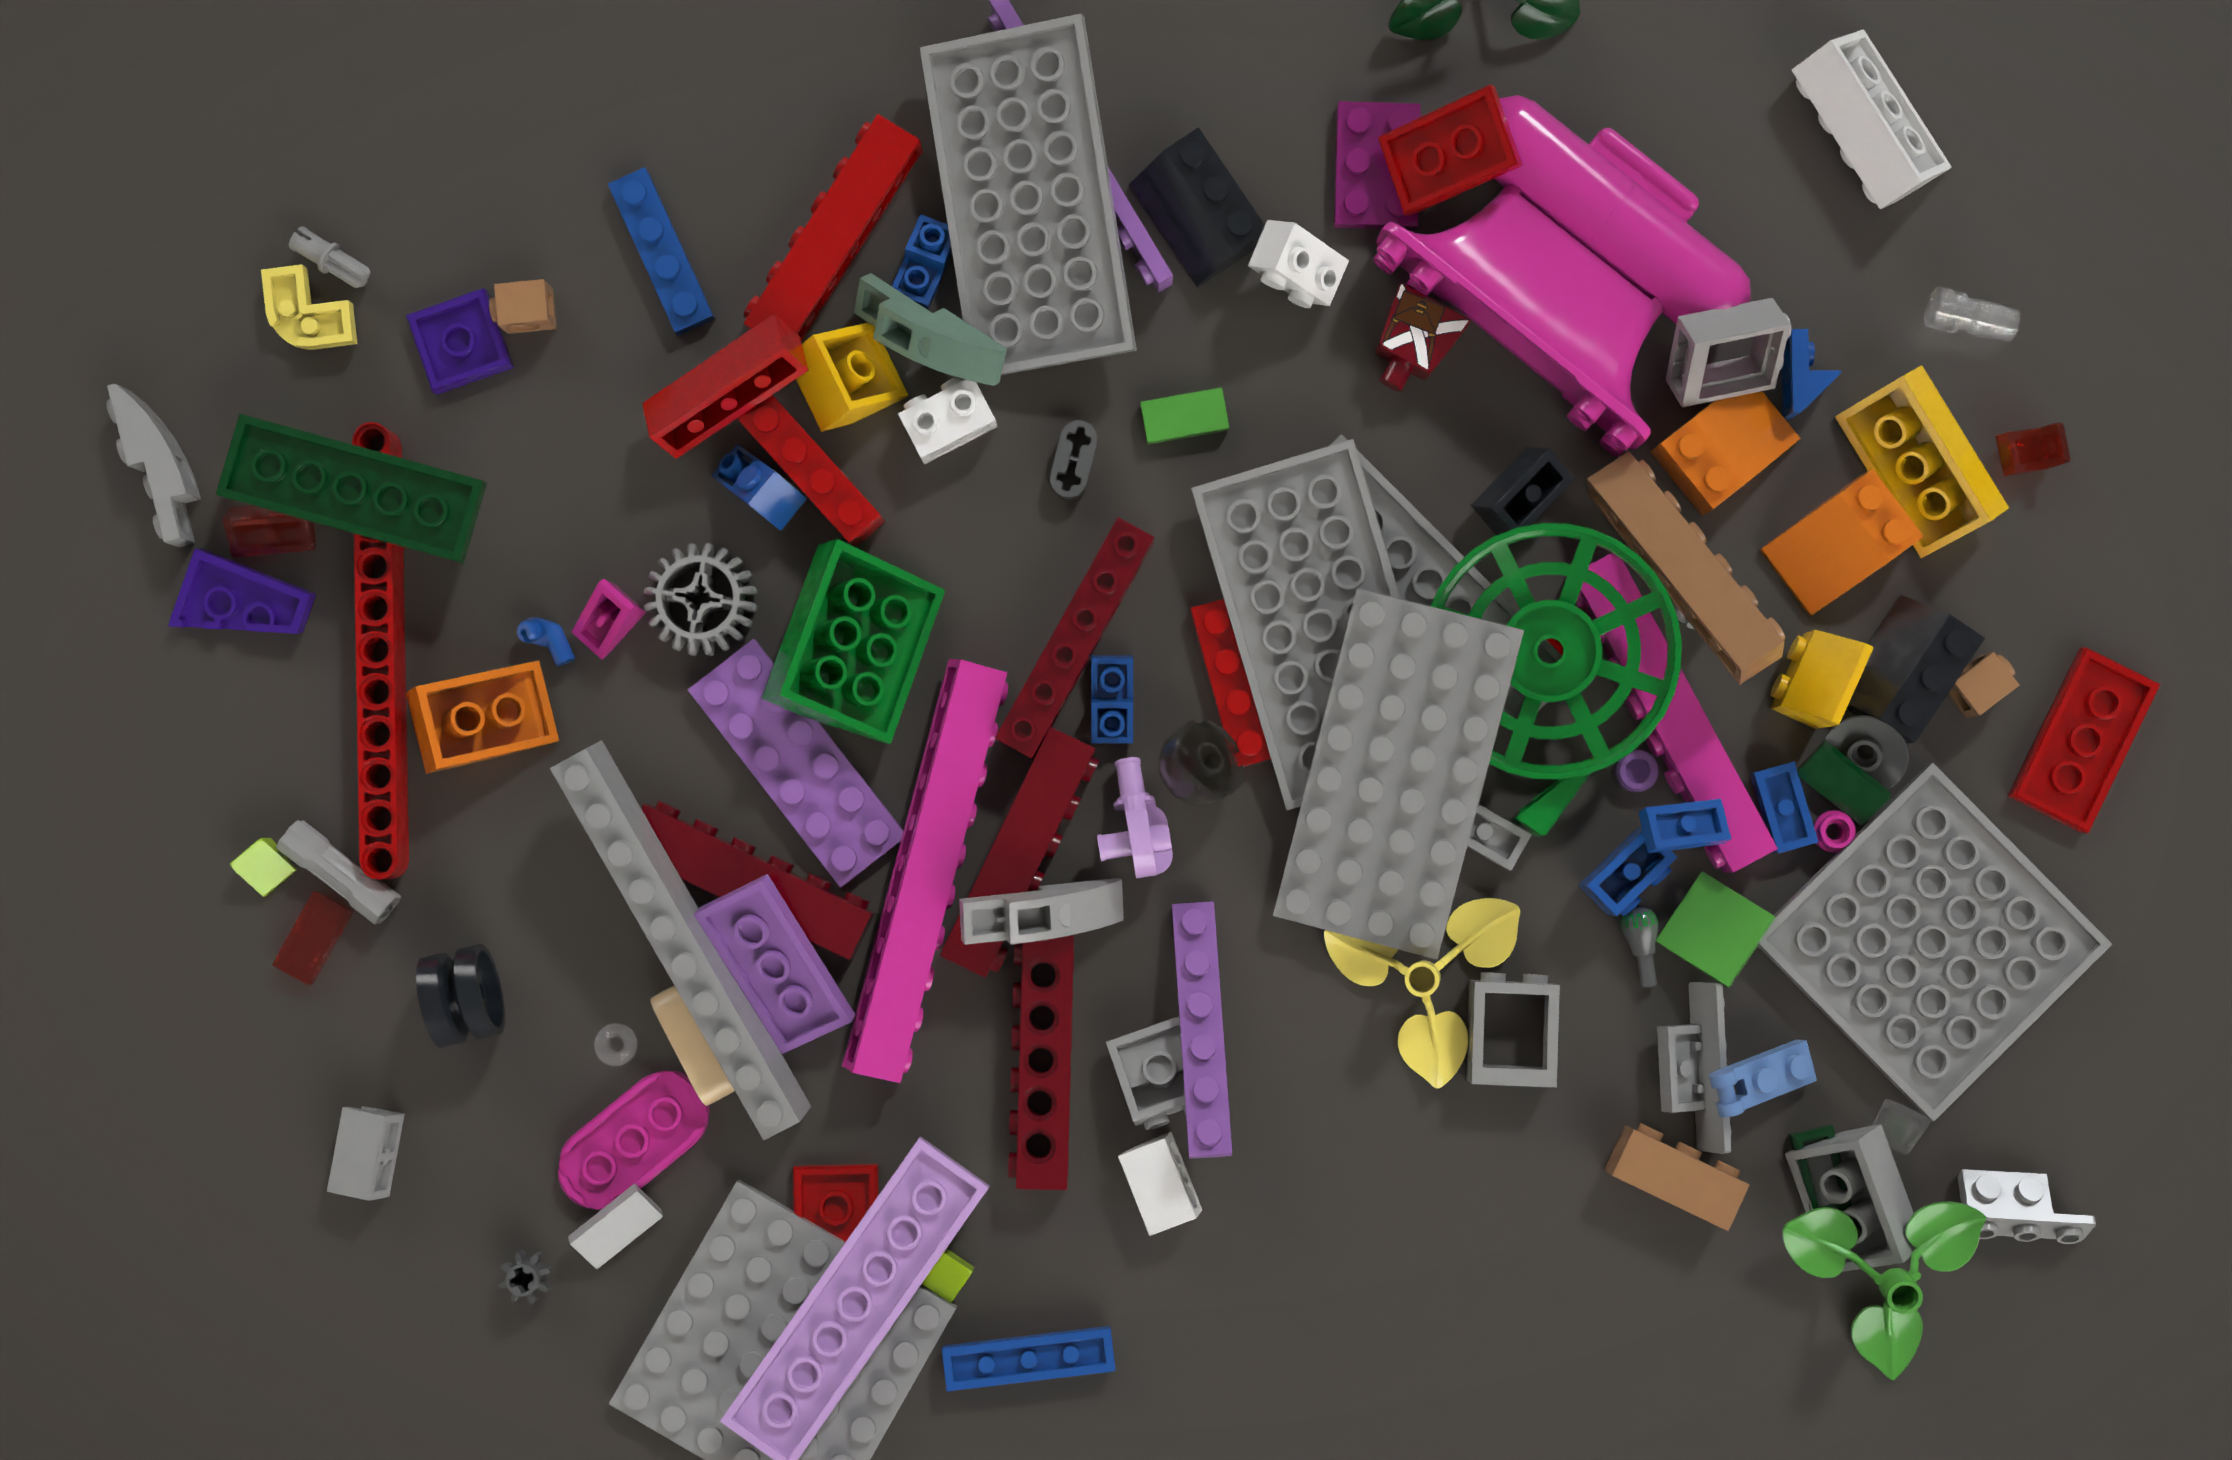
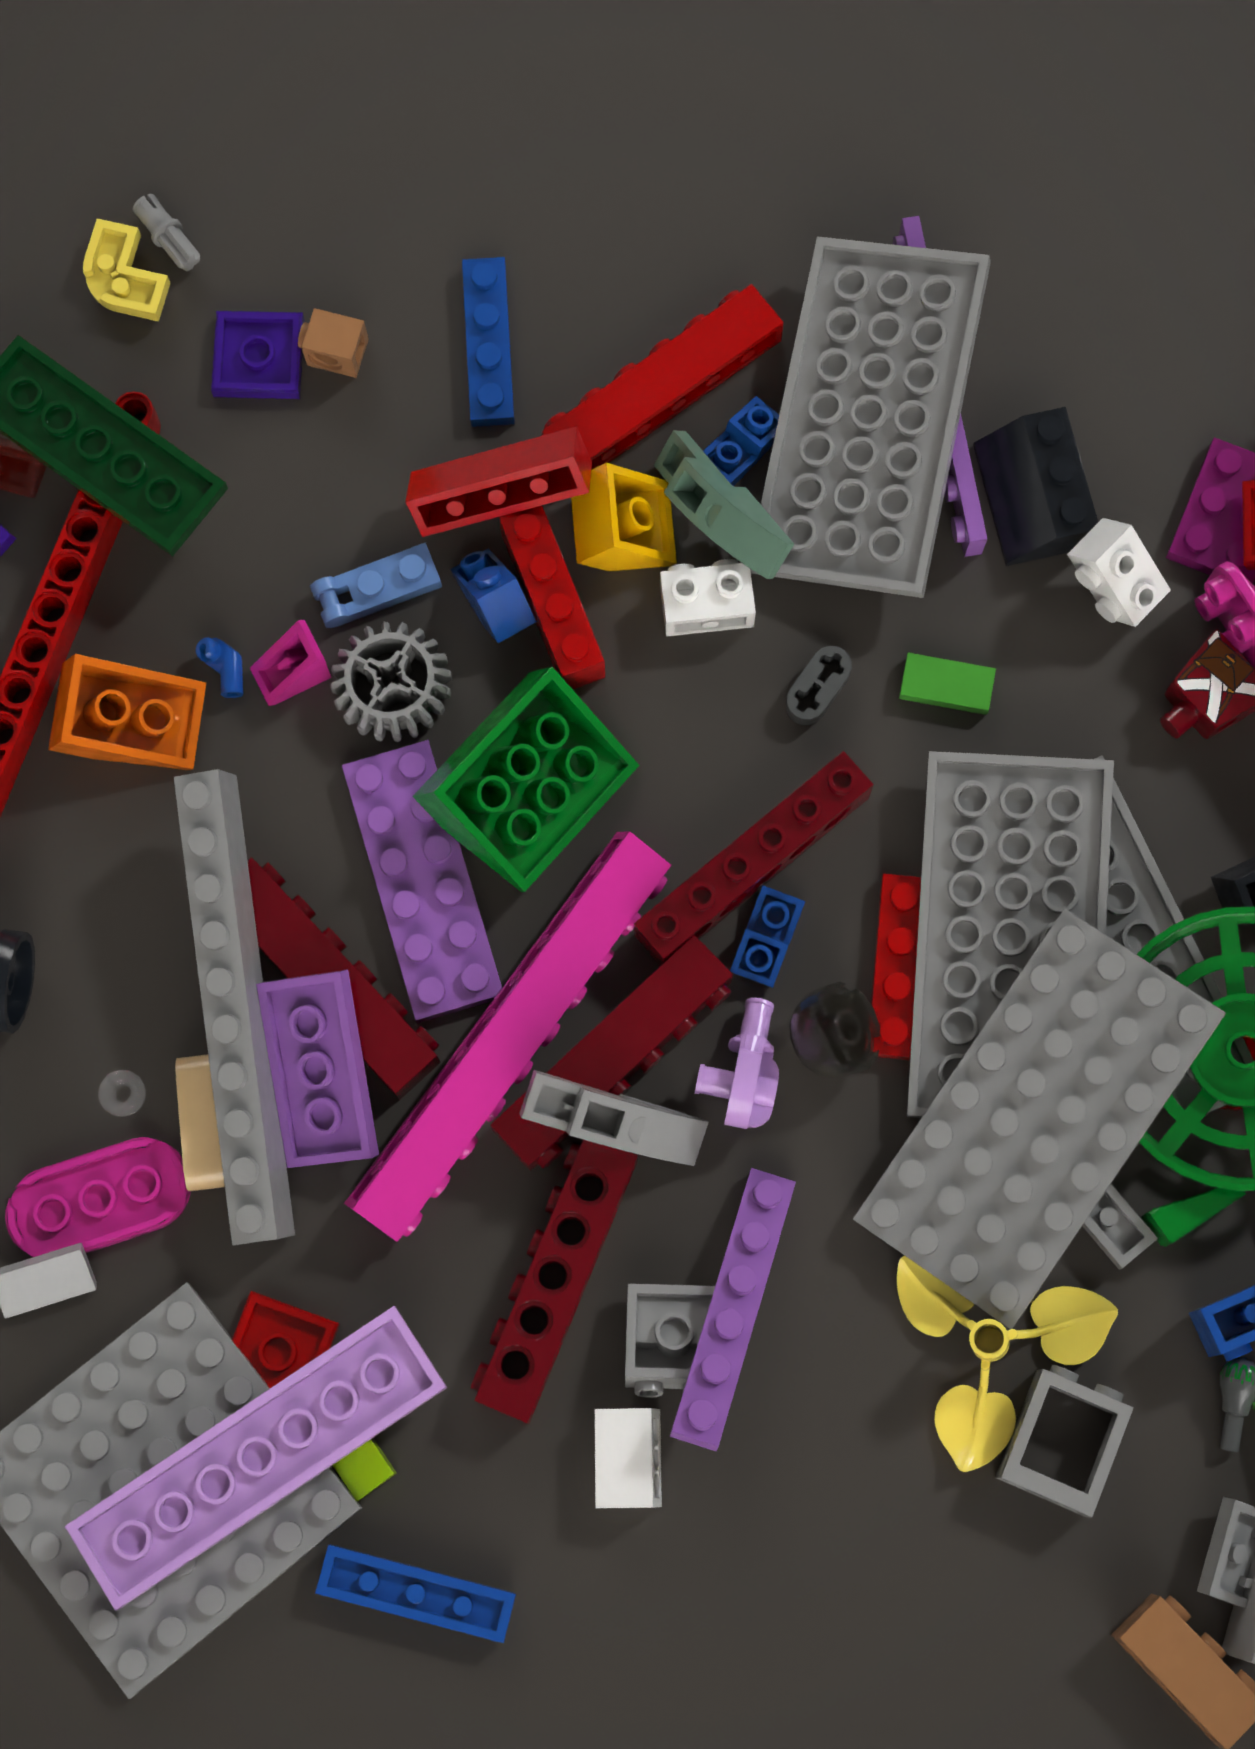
camera: 20 degrees right, 10 degrees down
(653, 515) = (376, 585): none -> medium blue plate

